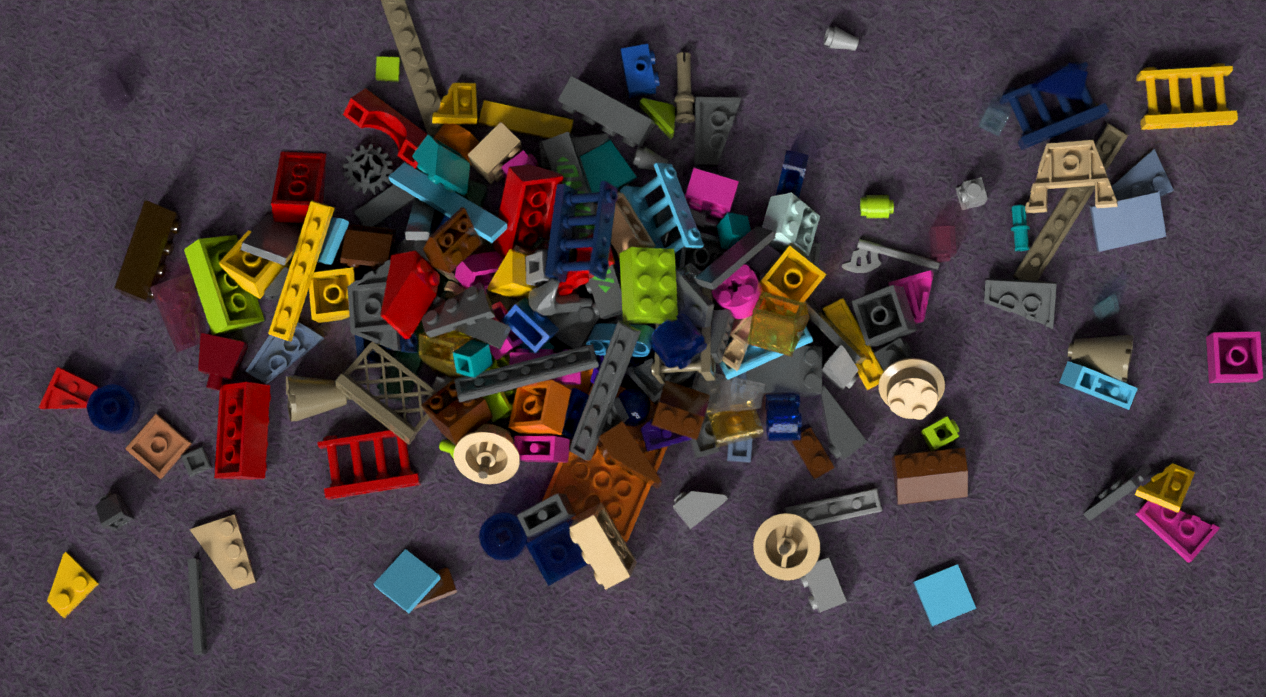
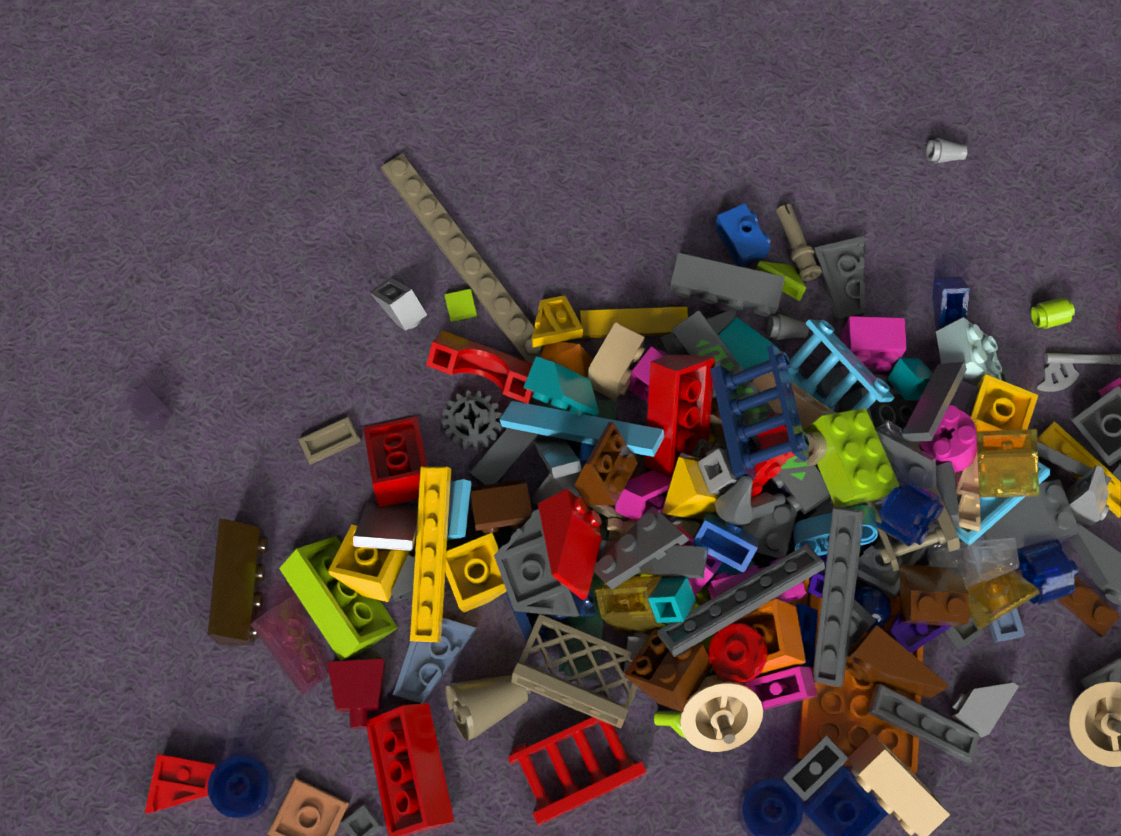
camera: 20 degrees left, 10 degrees down
(250, 155) = (329, 440): none -> dark tan tile
(336, 55) = (399, 303): none -> light grey slope
(511, 413) = (738, 653): none -> red tile
(619, 269) = (817, 448): none -> dark tan tile
(644, 505) = (923, 723): none -> dark grey tile

